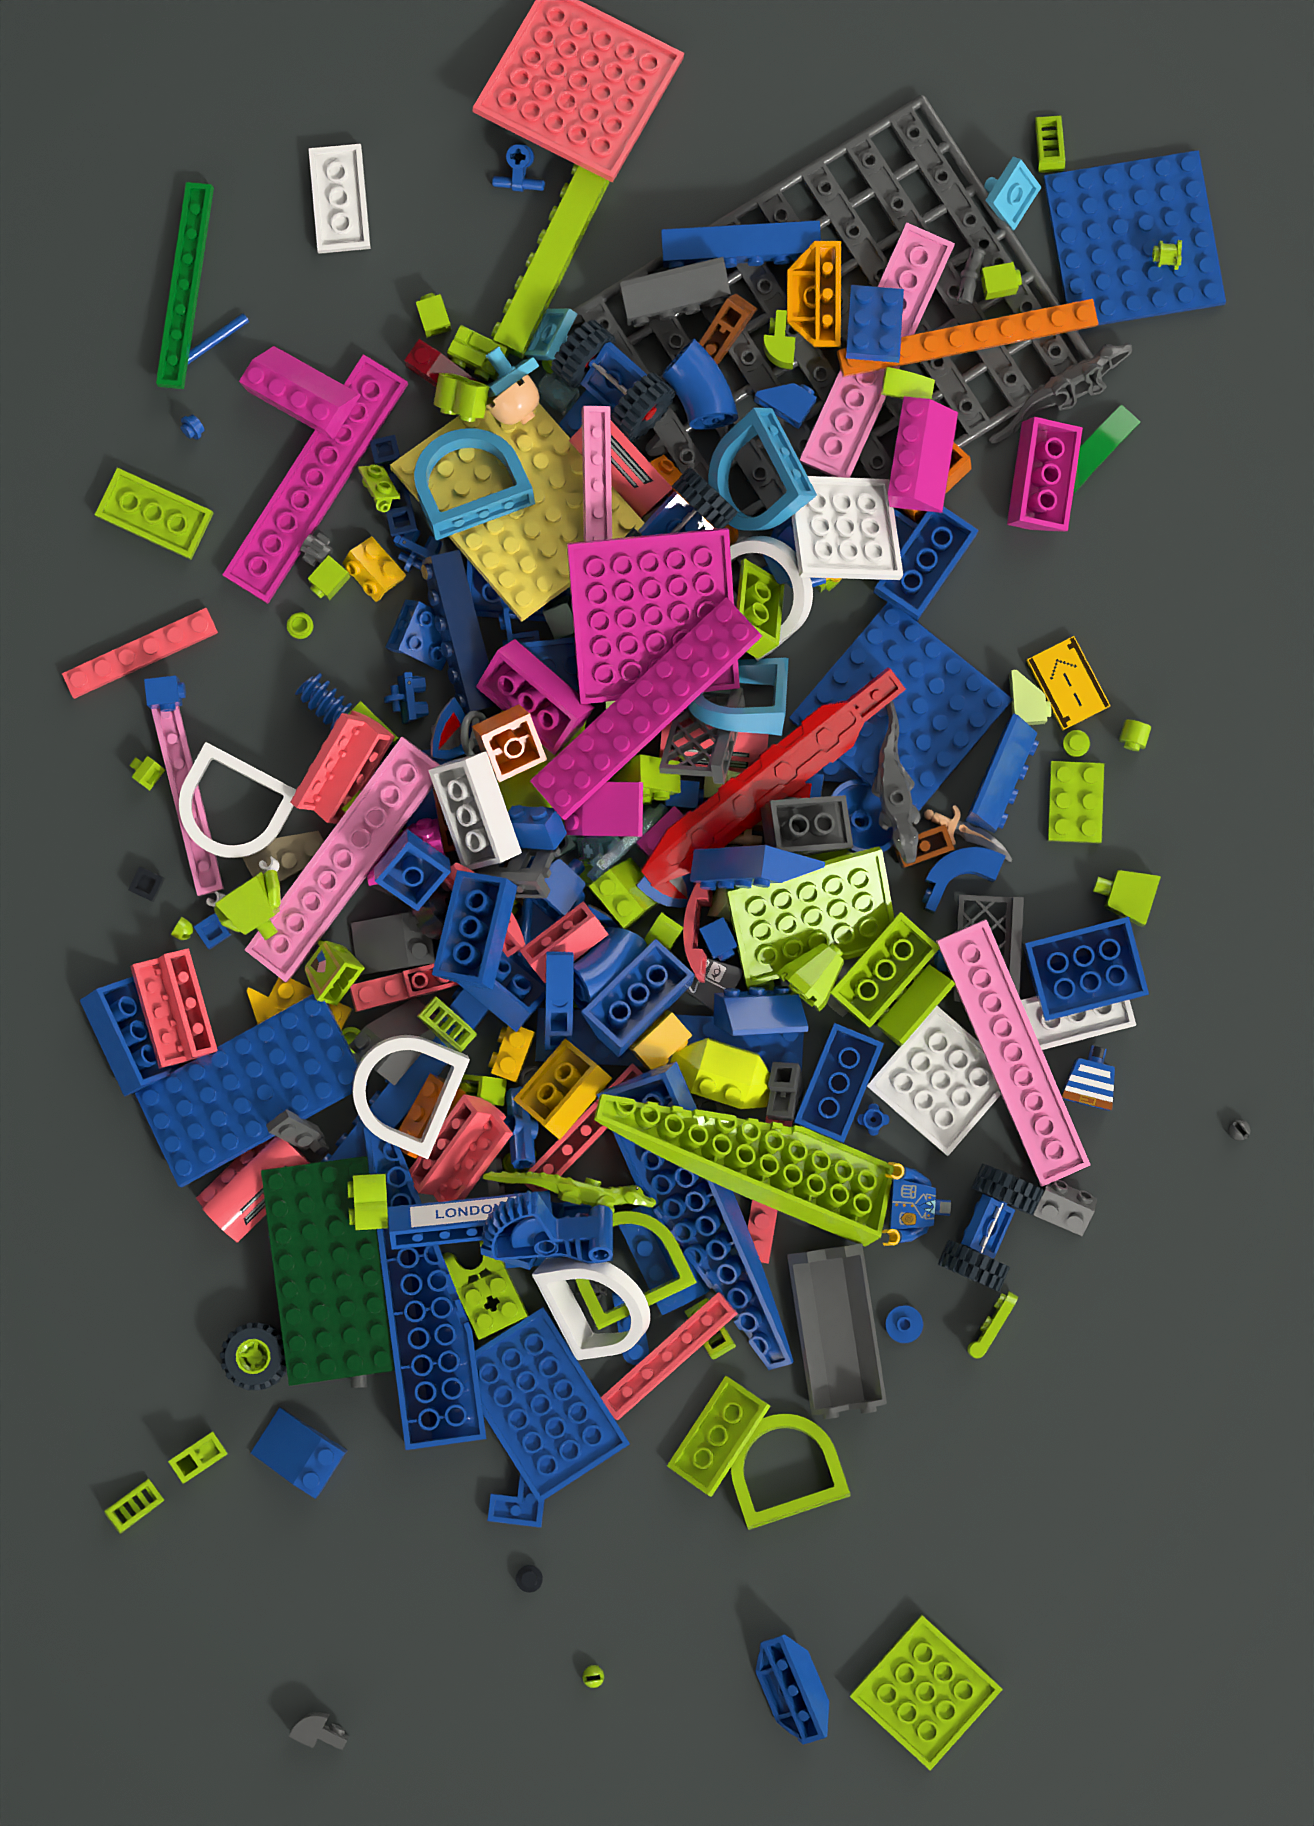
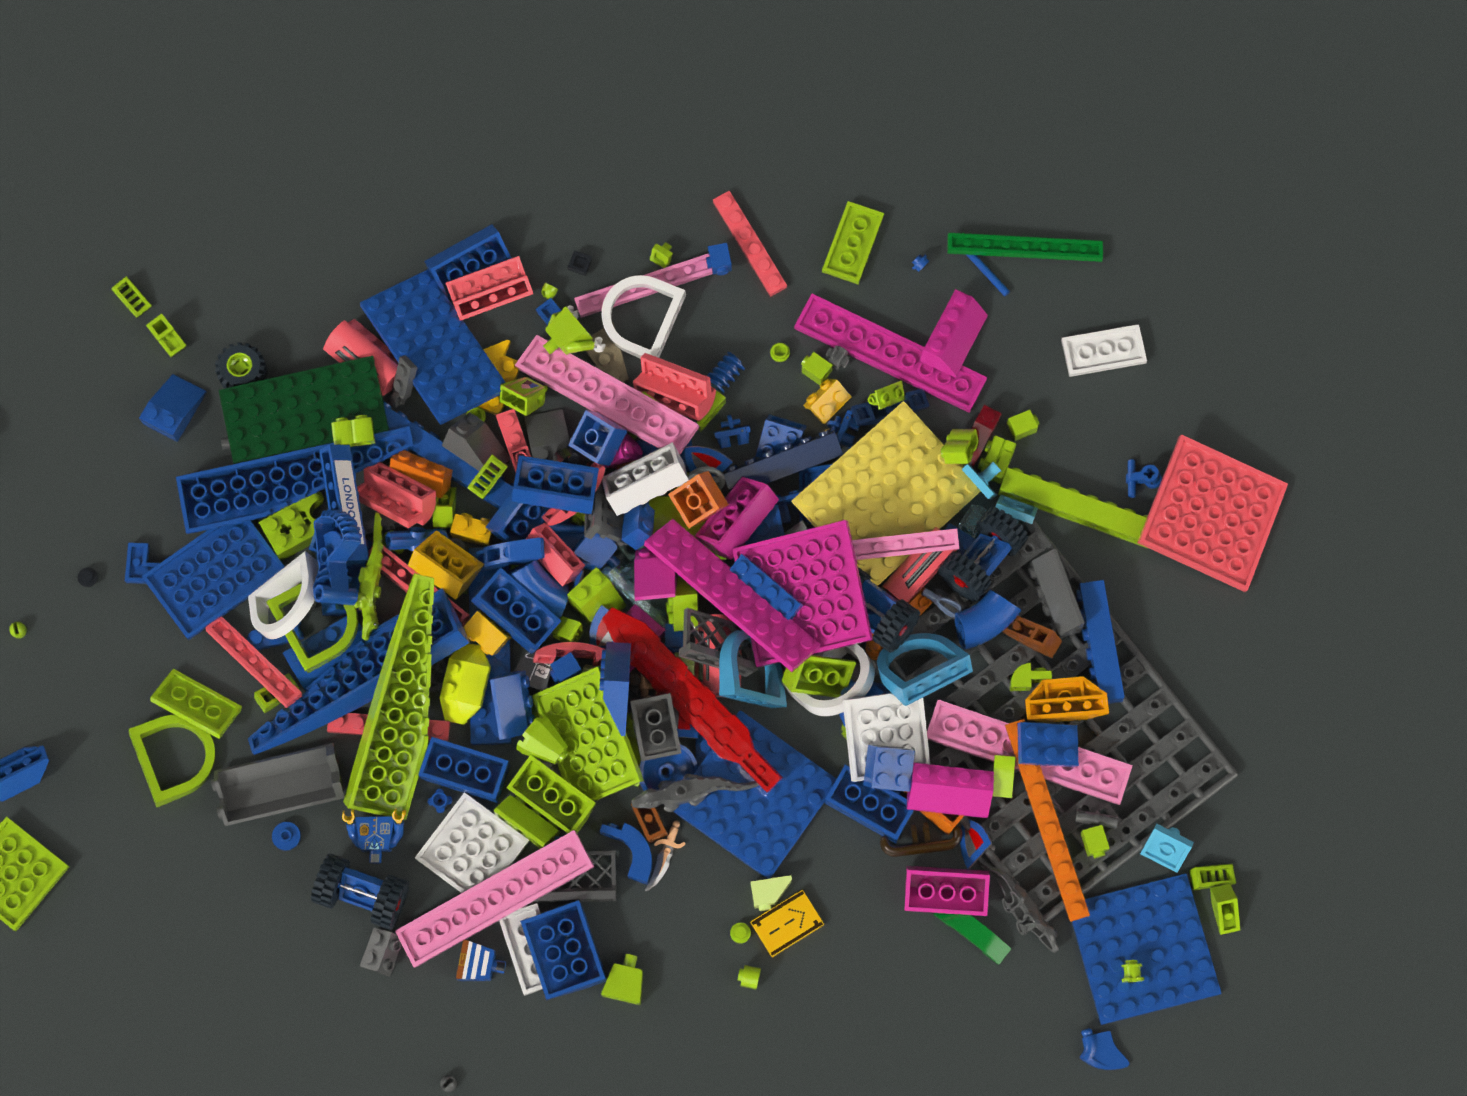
camera: 85 degrees right, 10 degrees down
(418, 1146) = (403, 441): white window -> none
(479, 510) = (872, 464): dark azure window -> none
(516, 403) = (958, 485): light nougat cylinder -> none
(639, 662) = (766, 587): none -> blue plate
(666, 448) = (937, 598): none -> sand blue piece
(785, 1092) = (457, 731): dark grey brick -> none
(788, 402) = (982, 688): blue slope -> none
(890, 527) = (889, 768): none -> brick
(986, 496) = (921, 848): none -> dark brown piece
(987, 435) = (974, 843): none -> shield
(992, 1324) = (287, 901): lime plate -> none
(1002, 774) = (708, 873): blue slope -> none
(1075, 802) = (694, 936): lime plate -> none
(1092, 131) = (1225, 908): none -> lime slope
(1258, 306) = (1101, 1051): none -> blue arm

